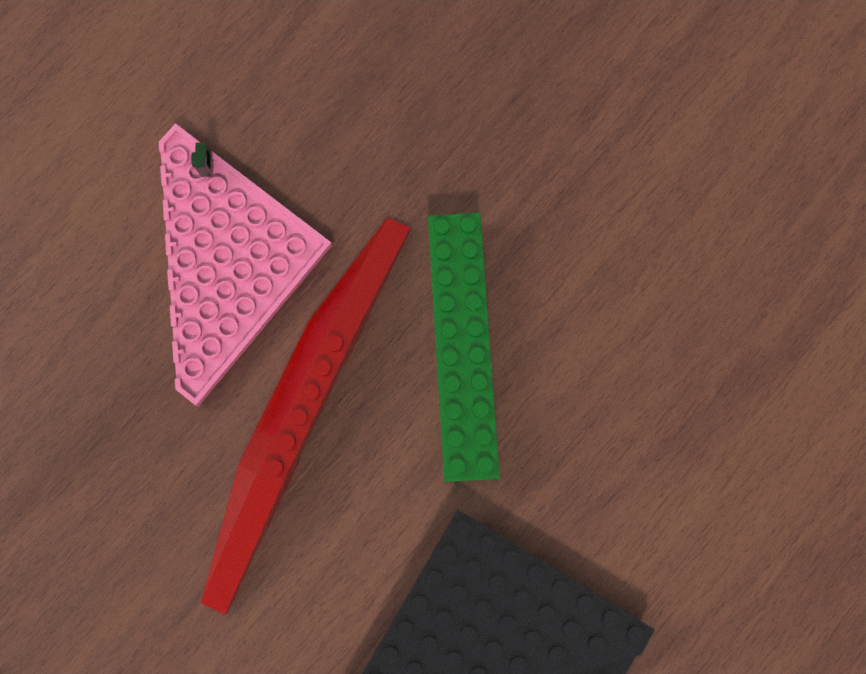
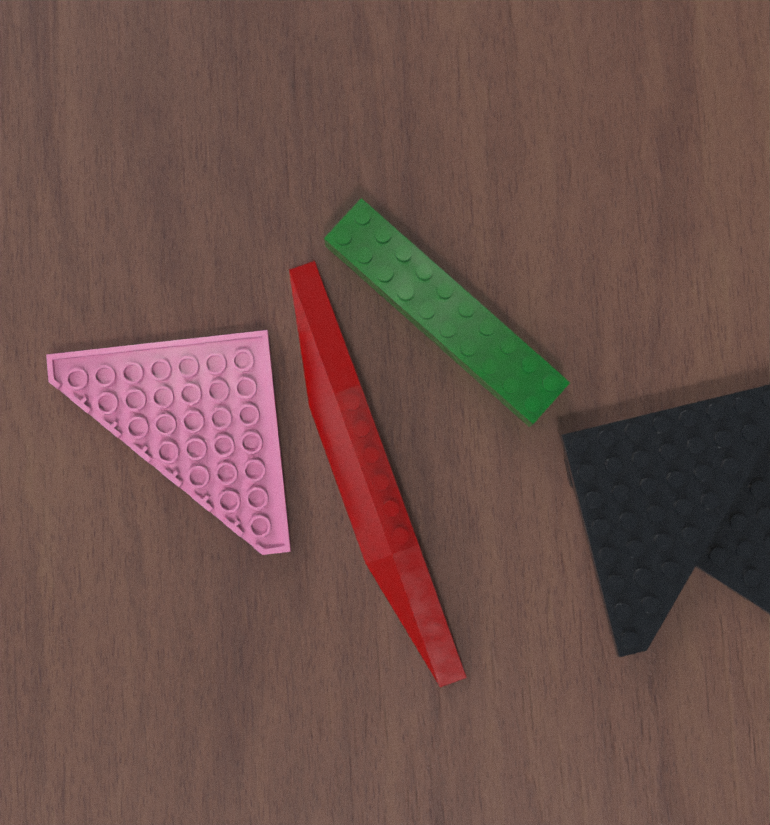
camera: 50 degrees left, 5 degrees up
(202, 159) = (102, 362): dark green plate -> none

